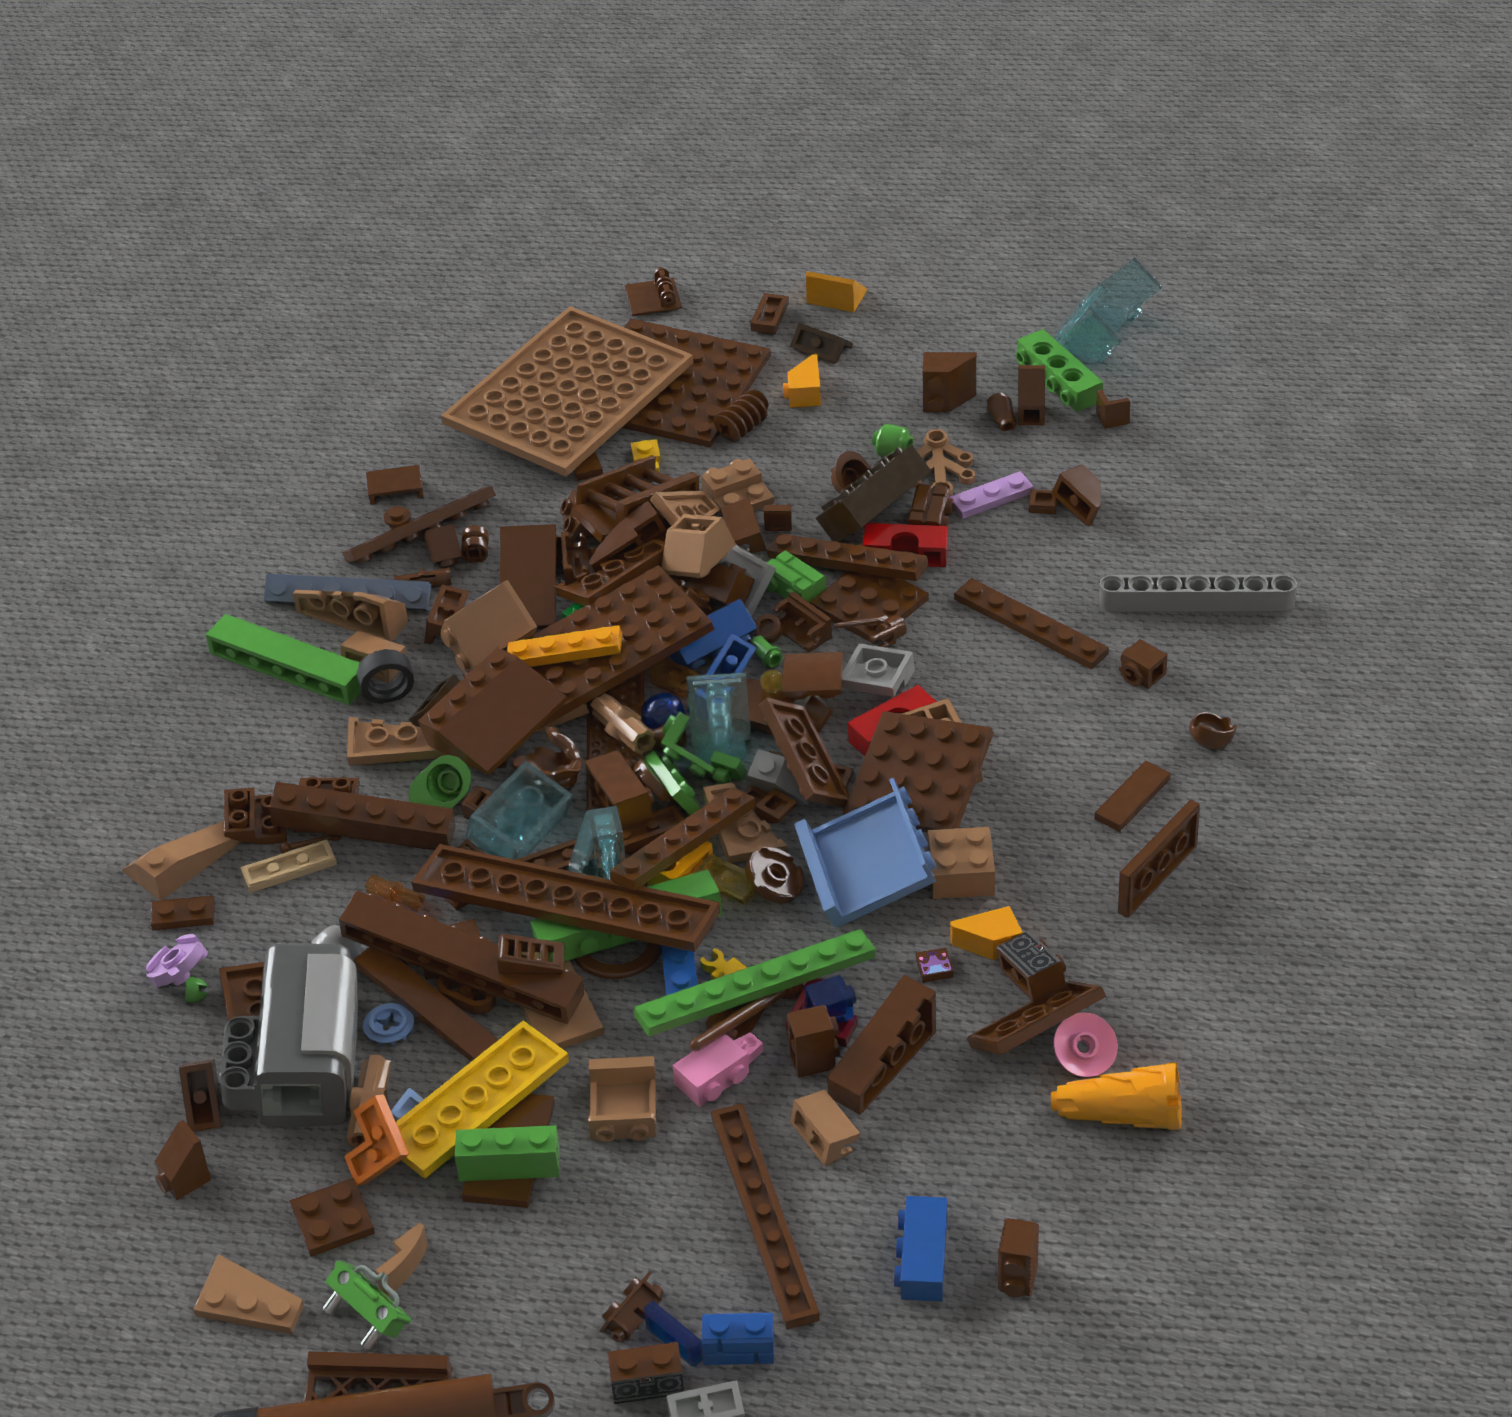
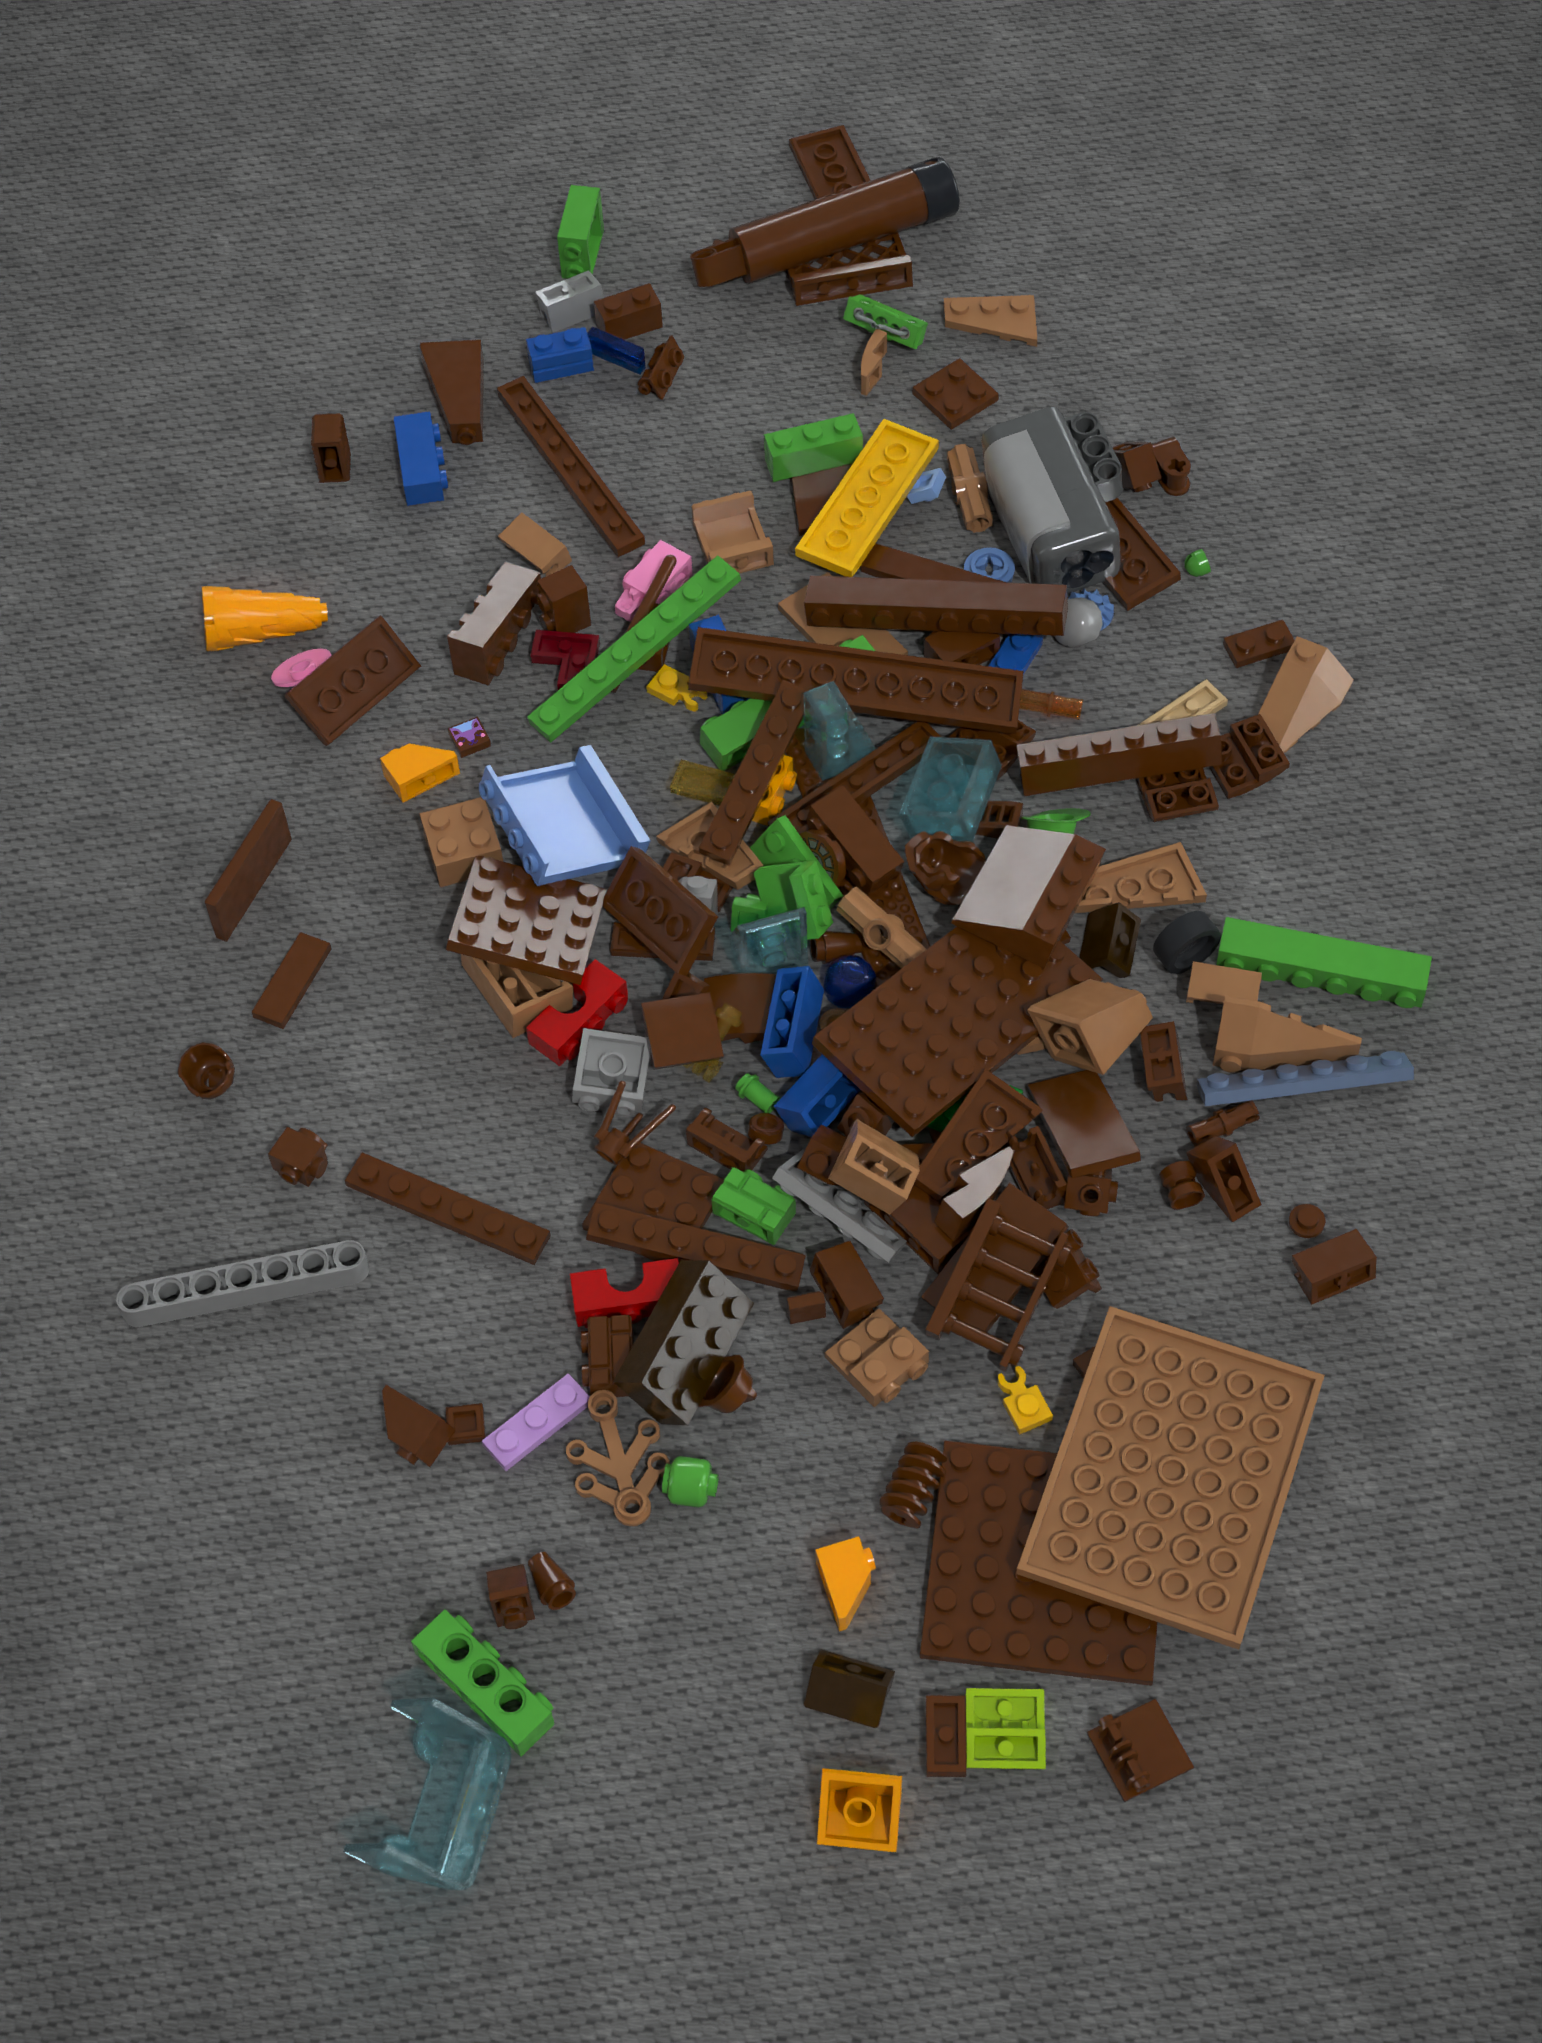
camera: 165 degrees right, 15 degrees up
(164, 1083) = (1172, 466): none -> reddish brown piece
(175, 963) = (1231, 588): lavender plate -> none
(181, 1163) = (1105, 391): reddish brown slope -> none
(382, 1145) = (938, 429): orange plate -> none
(409, 530) = (1268, 1207): reddish brown plate -> none
(520, 944) = (871, 592): reddish brown slope -> none
(568, 646) = (983, 989): light orange plate -> none
(675, 504) = (924, 1265): medium nougat wing -> none
(729, 315) = (1005, 1728): none -> lime slope
(774, 875) = (656, 789): reddish brown plate -> none
(835, 995) = (556, 642): clear blue brick -> none
(860, 1331) = (457, 382): none -> reddish brown slope
(948, 380) = (635, 1595): reddish brown slope -> none
(1031, 966) = (365, 732): brick -> none
(1113, 412) = (393, 1611): reddish brown panel -> none

